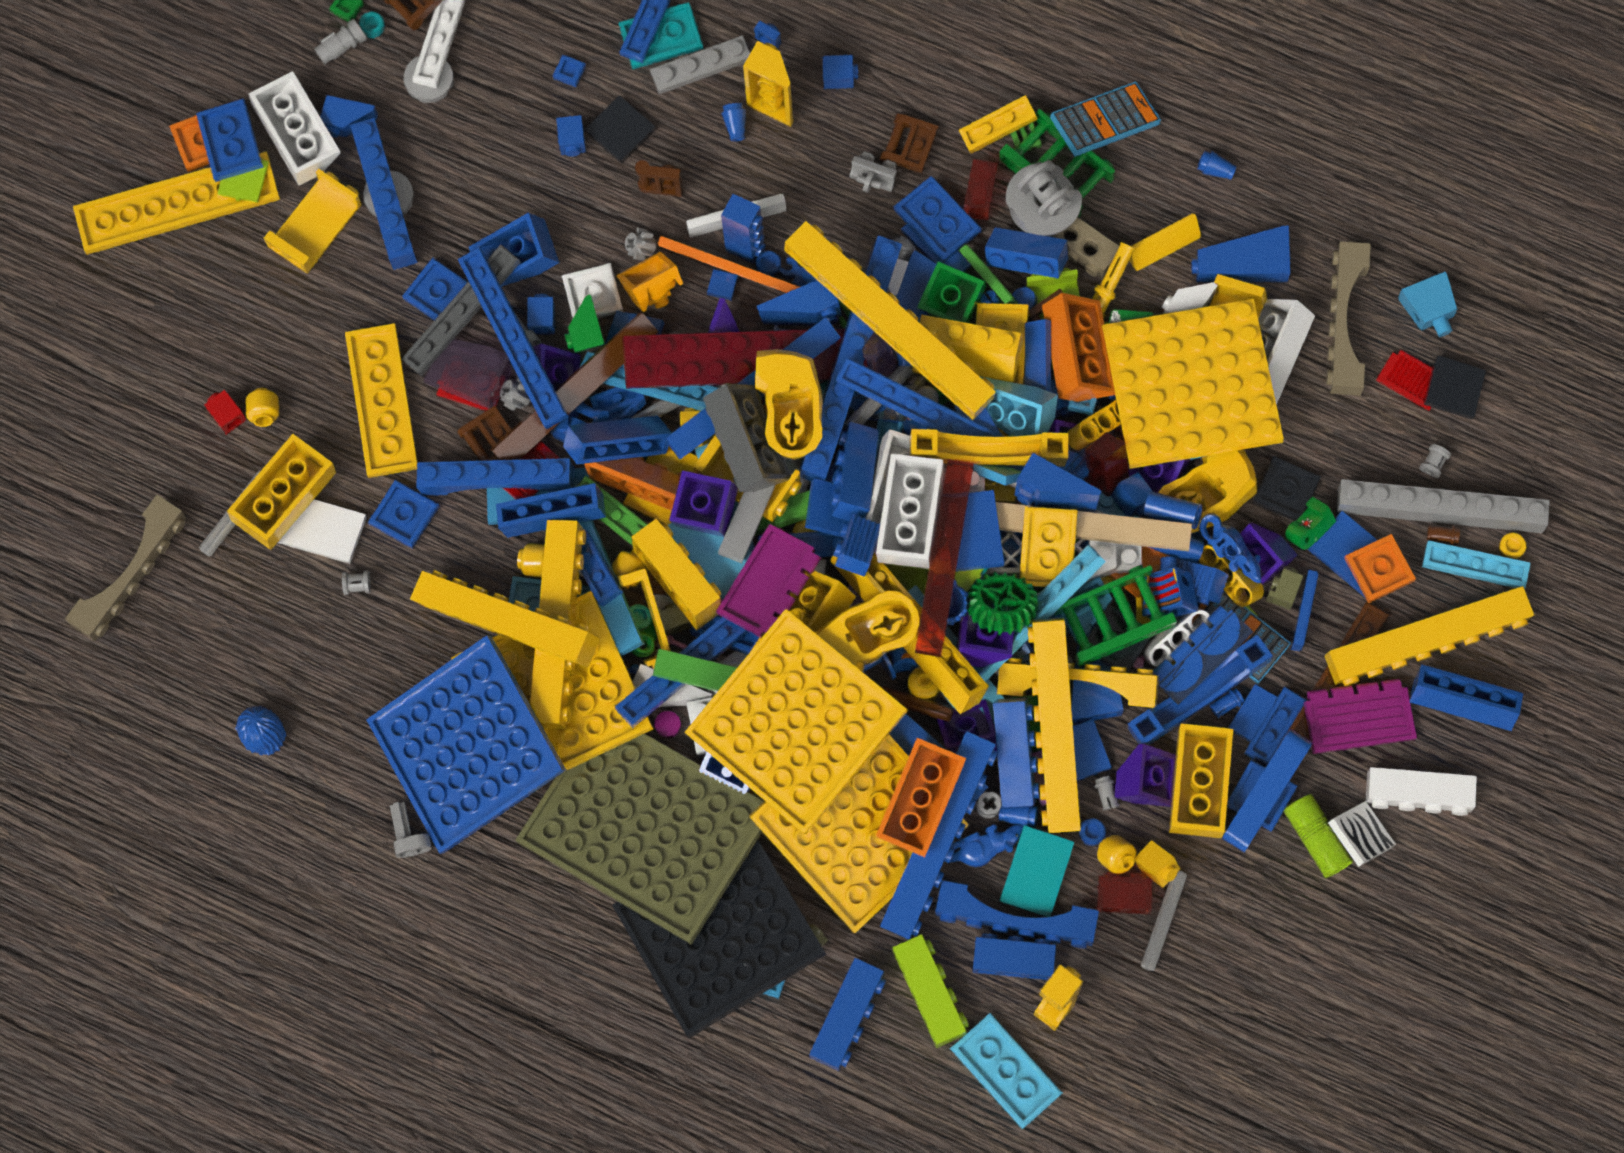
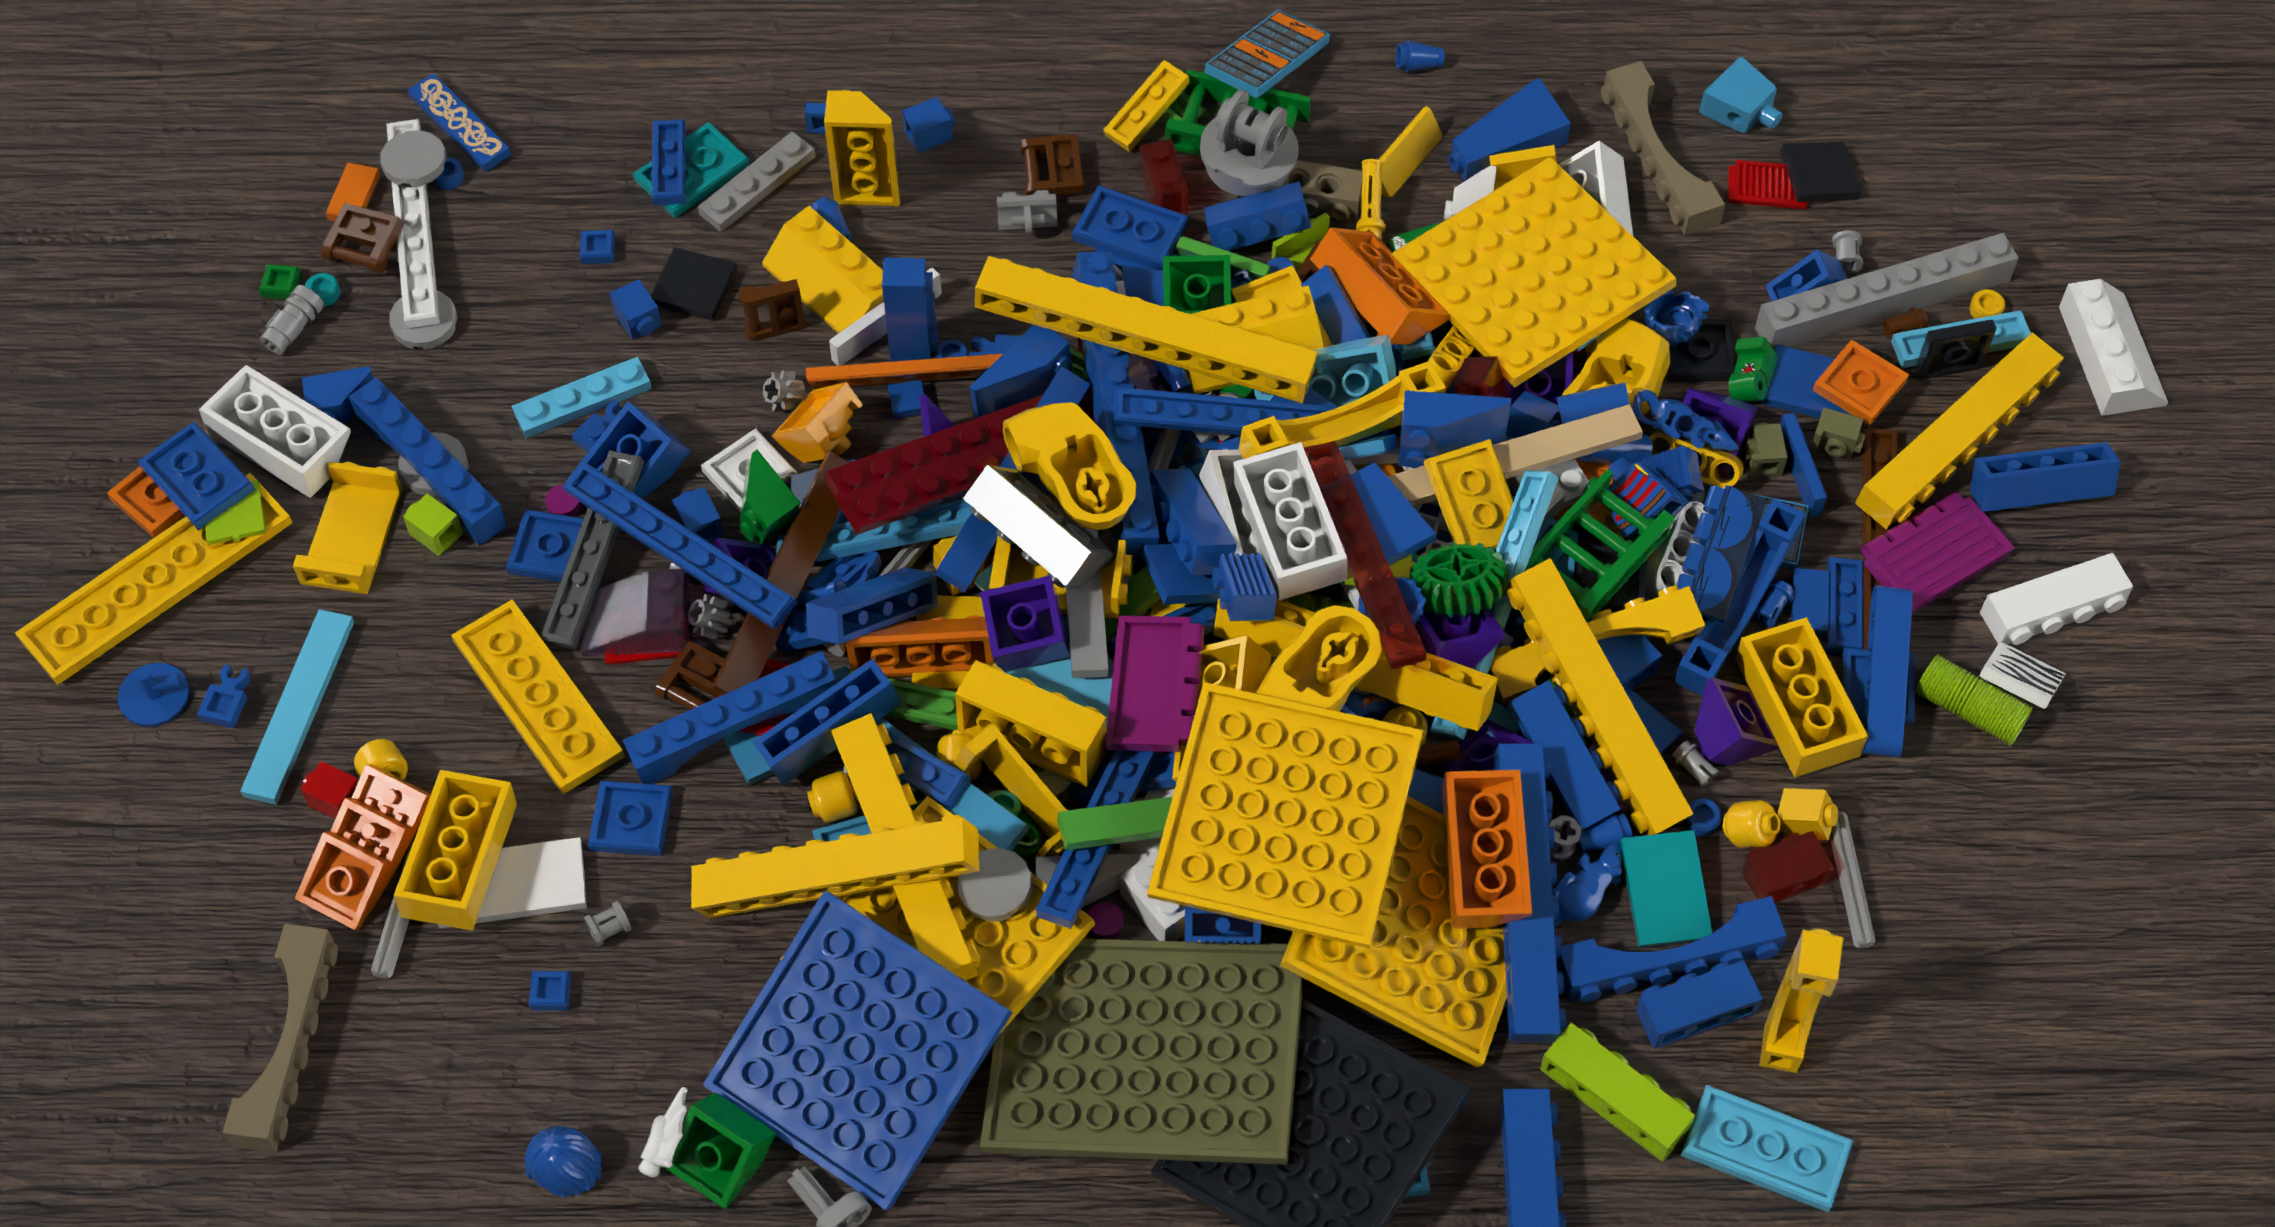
camera: 30 degrees left, 15 degrees down
(144, 287) = (153, 694): none -> blue shield
(183, 315) = (225, 702): none -> blue plate
(227, 461) = (363, 847): none -> orange slope
(229, 338) = (297, 707): none -> medium azure tile
(302, 611) = (550, 991): none -> blue tile
(326, 744) = (664, 1137): none -> white arm
(357, 766) = (720, 1149): none -> green slope
(367, 243) = (432, 524): none -> lime brick
(453, 262) = (561, 503): none -> magenta tile
(506, 215) = (594, 427): none -> blue plate
(507, 186) = (581, 397): none -> medium azure plate
(604, 676) = (998, 887): none -> light grey tile
(712, 161) = (830, 270): none -> yellow slope
(1274, 462) = (1676, 316): none -> blue hair
(1342, 599) = (1838, 434): none -> olive brick
(1391, 470) = (1810, 273): none -> blue slope
(1460, 574) = (1955, 349): none -> black tile
(1581, 620) = (2110, 348): none -> white slope

